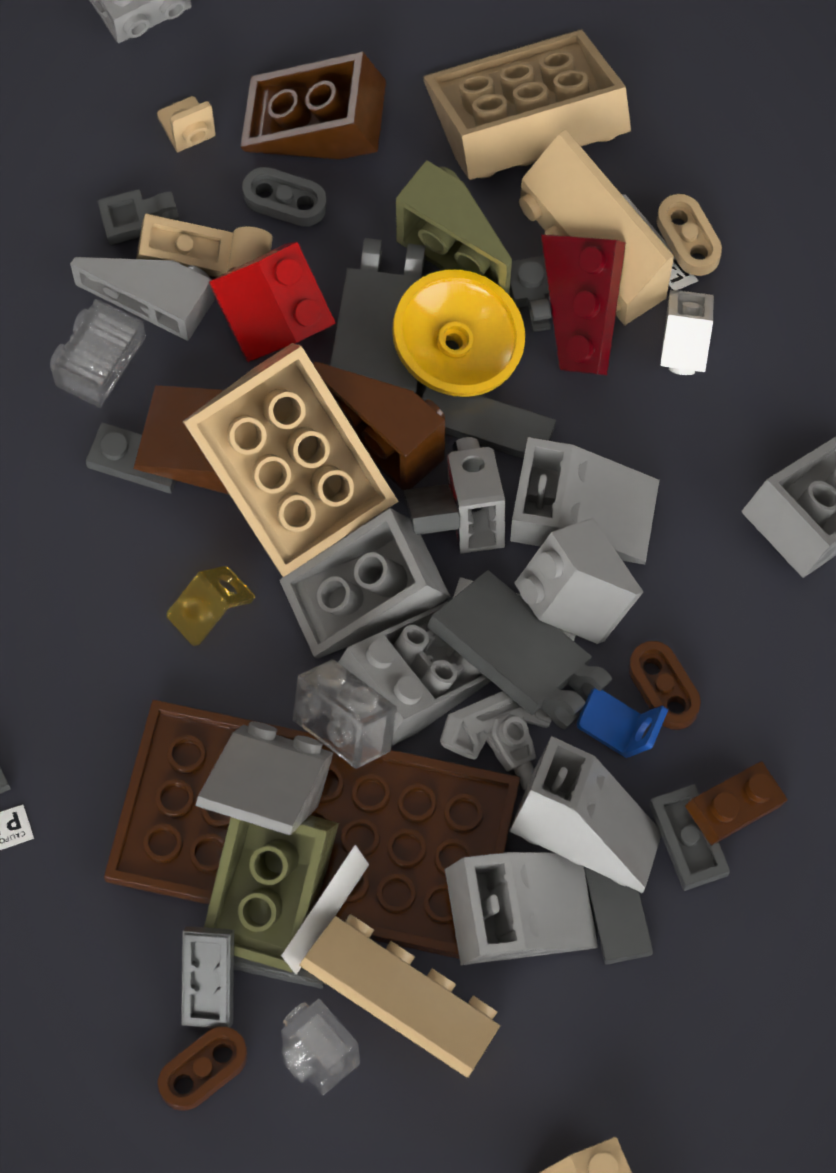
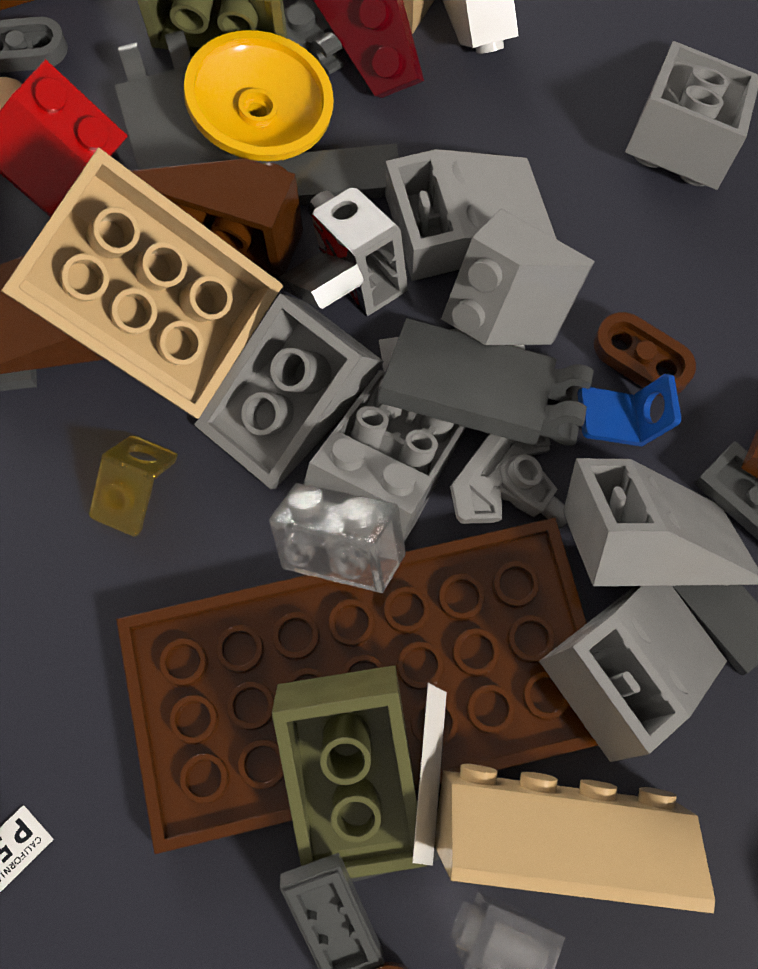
camera: 25 degrees left, 5 degrees up
(267, 778) = (293, 667): light grey slope -> none

